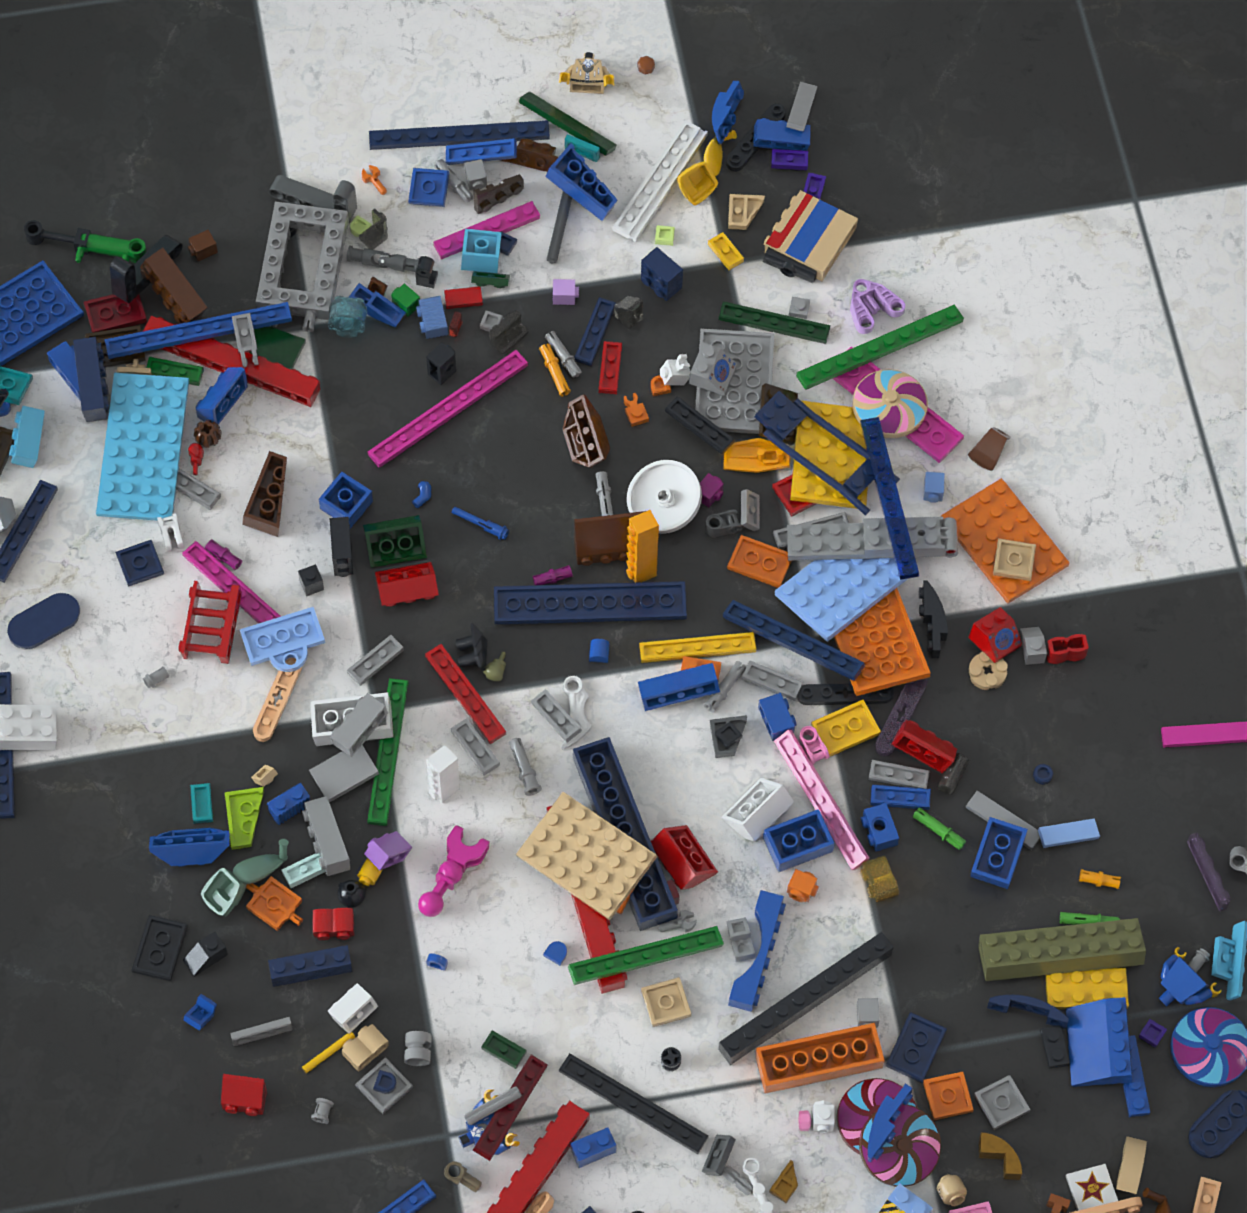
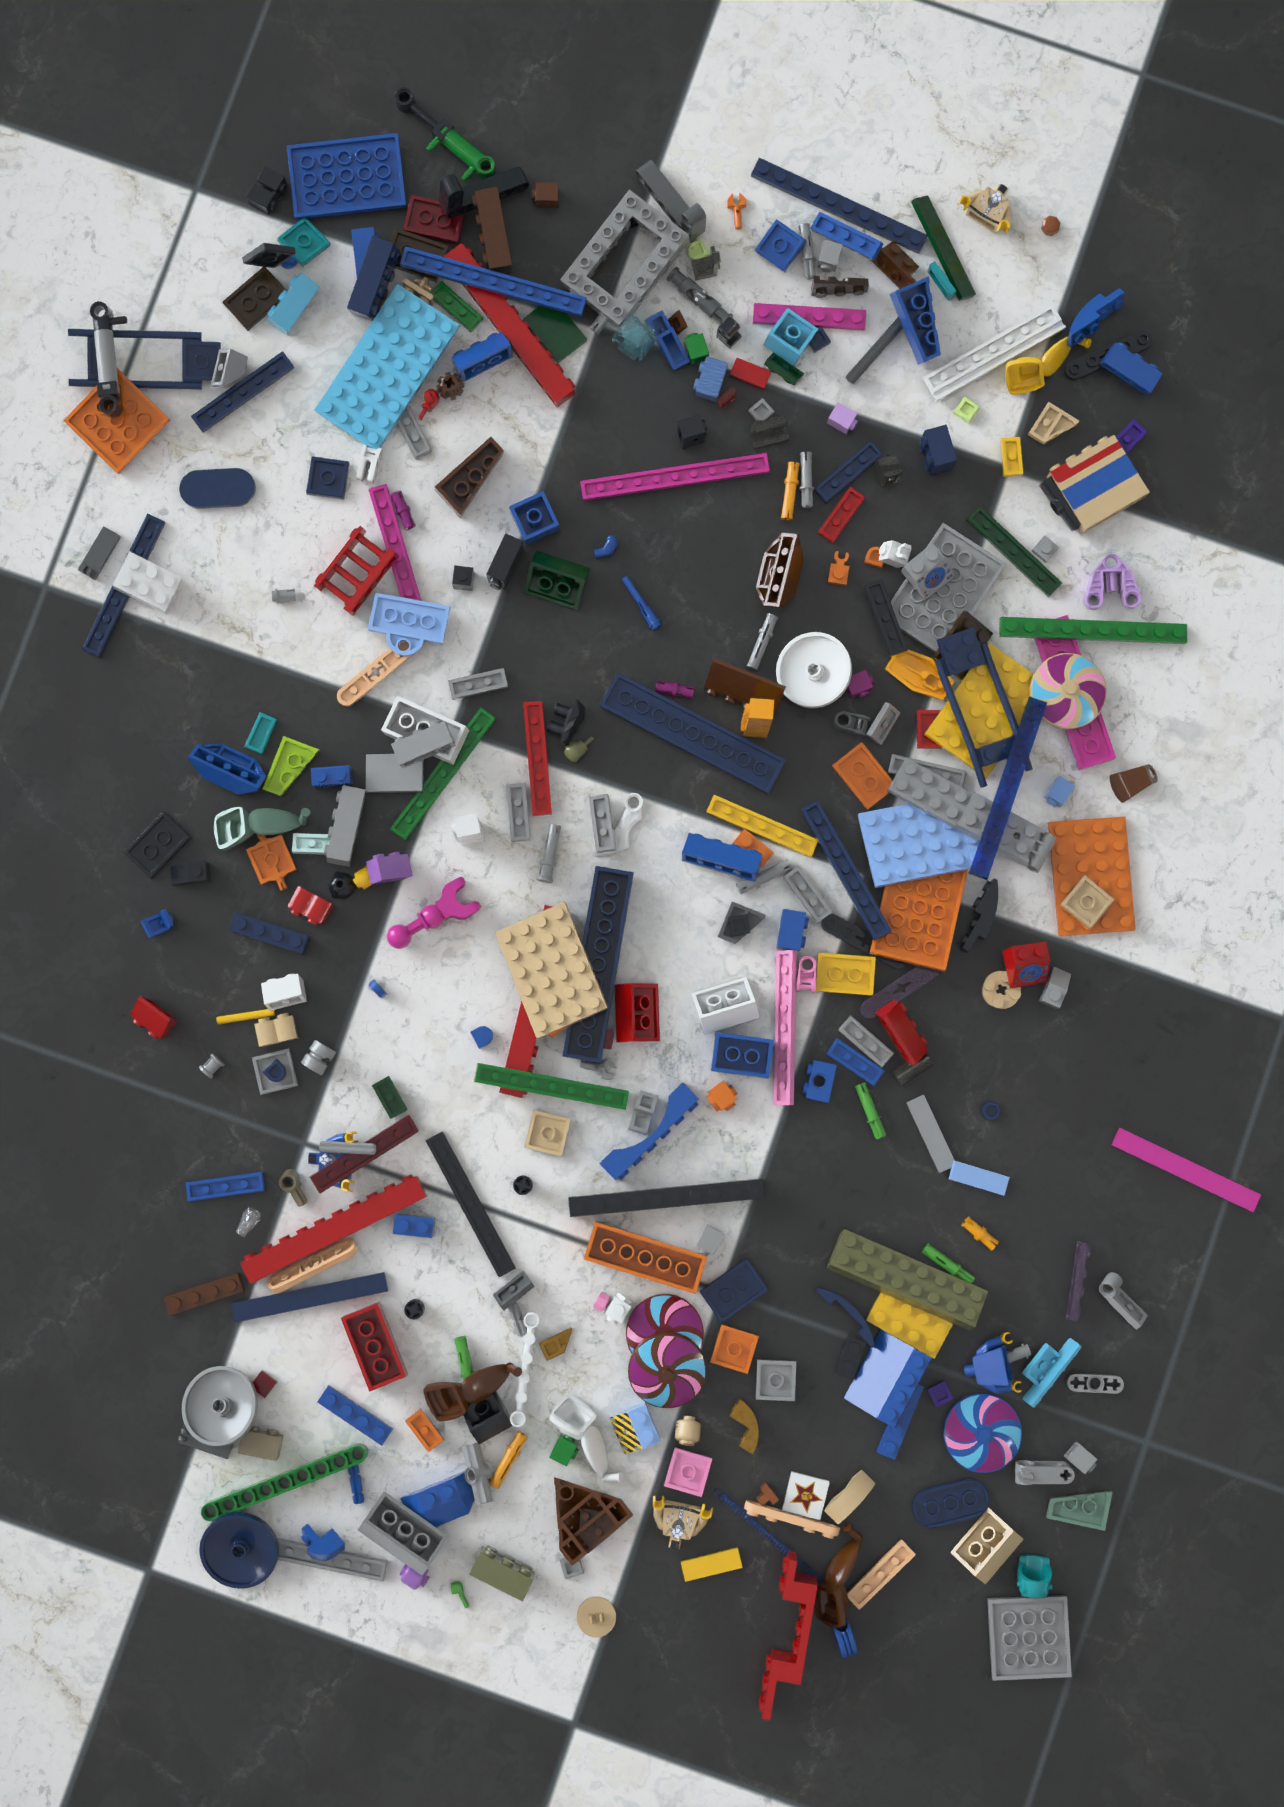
camera: 30 degrees right, 20 degrees up
(245, 337) = (529, 313): light grey hinge -> none
(261, 1031) = (199, 968): light grey tile -> none
(264, 775) = (325, 739): tan plate -> none
(406, 584) = (544, 626): red slope -> none
(599, 650) = (675, 782): blue brick -> none
(789, 159) = (1124, 395): dark purple plate -> none
(801, 106) = (1166, 349): light grey tile -> none
(879, 878) = (791, 1127): clear yellow brick -> none
(882, 1128) = (655, 1355): blue slope -> none
(998, 853) = (905, 1165): blue brick -> none
(1071, 648) = (1077, 1009): red brick -> none

